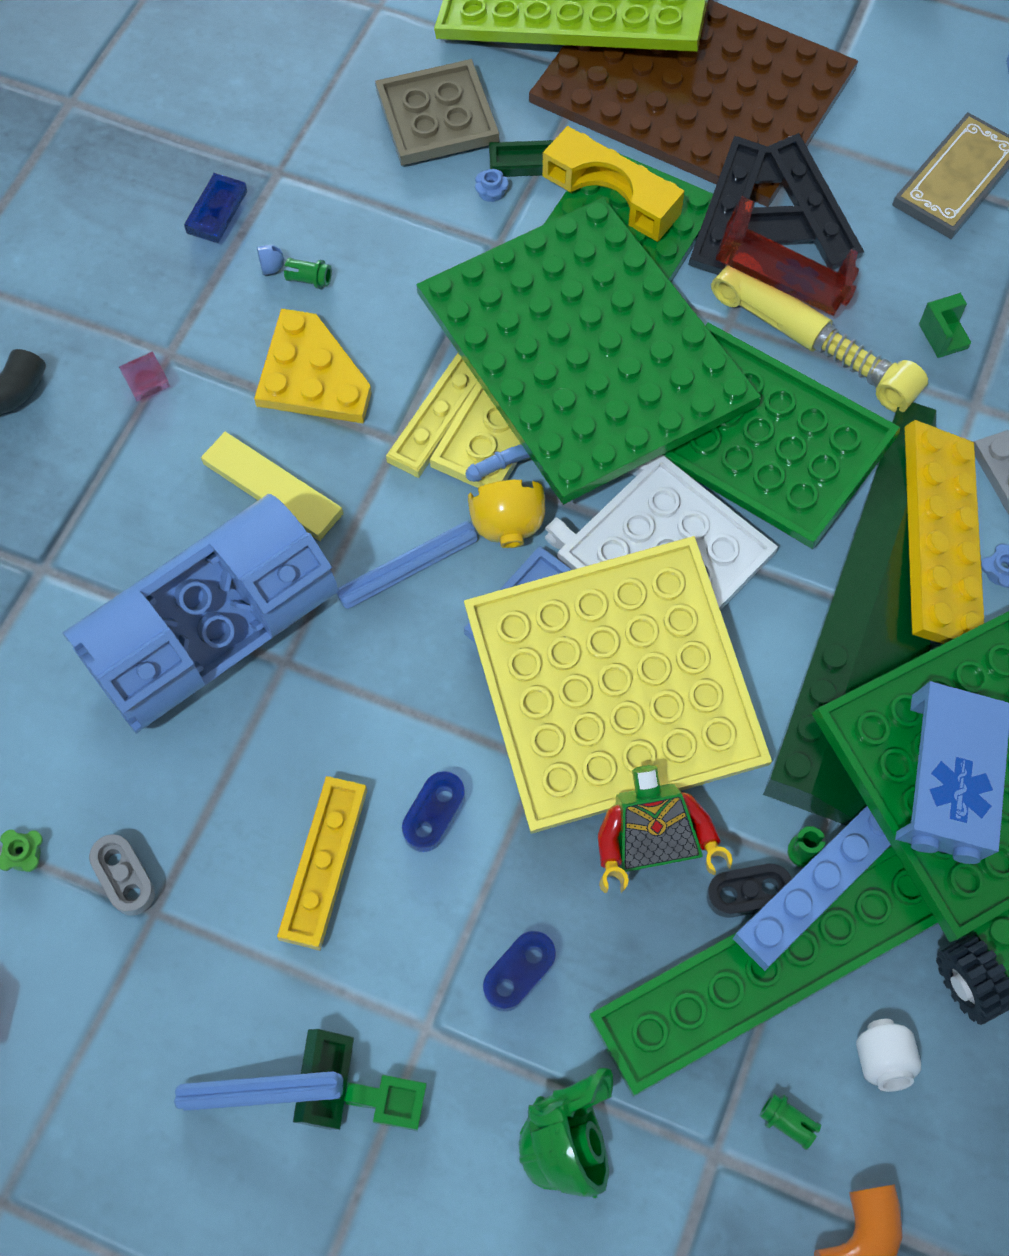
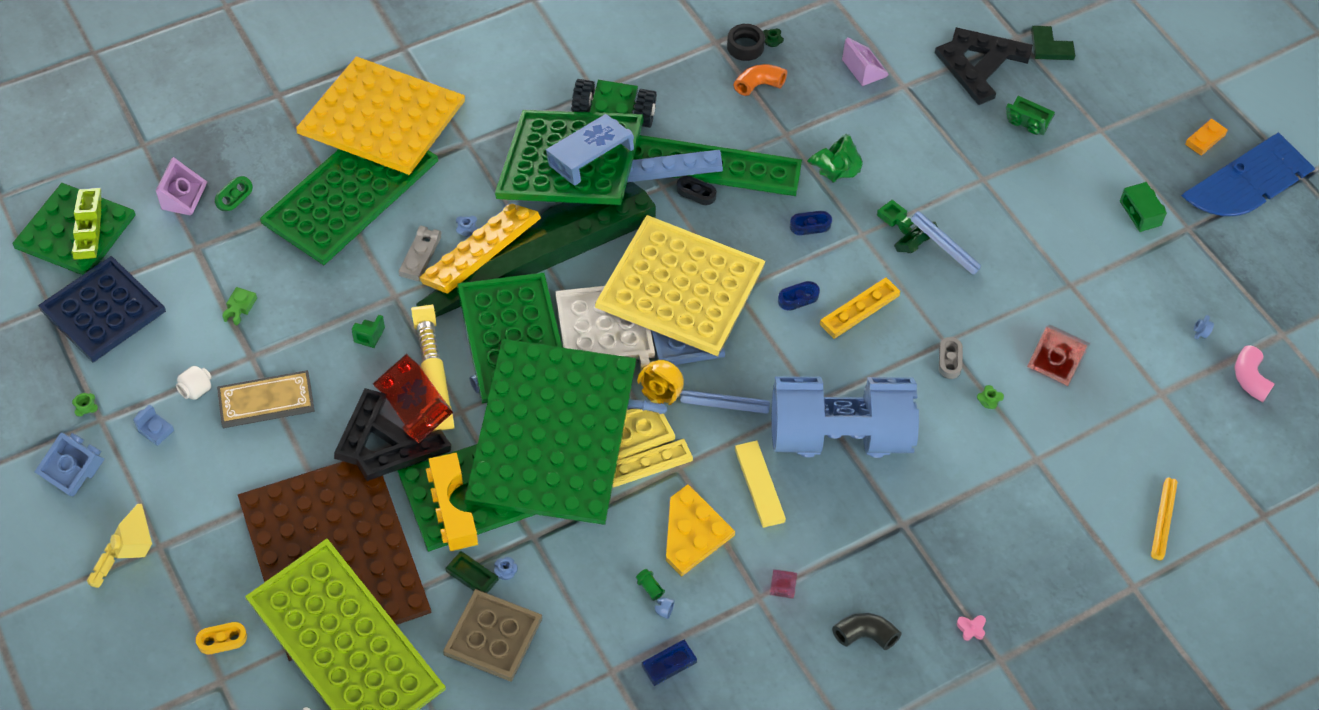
camera: 145 degrees left, 10 degrees down
(655, 829) = (717, 225): torso -> none
(789, 1120) = (753, 126): green pin -> none
(805, 846) = (661, 189): green pin -> none
(888, 1055) = (697, 113): white head -> none

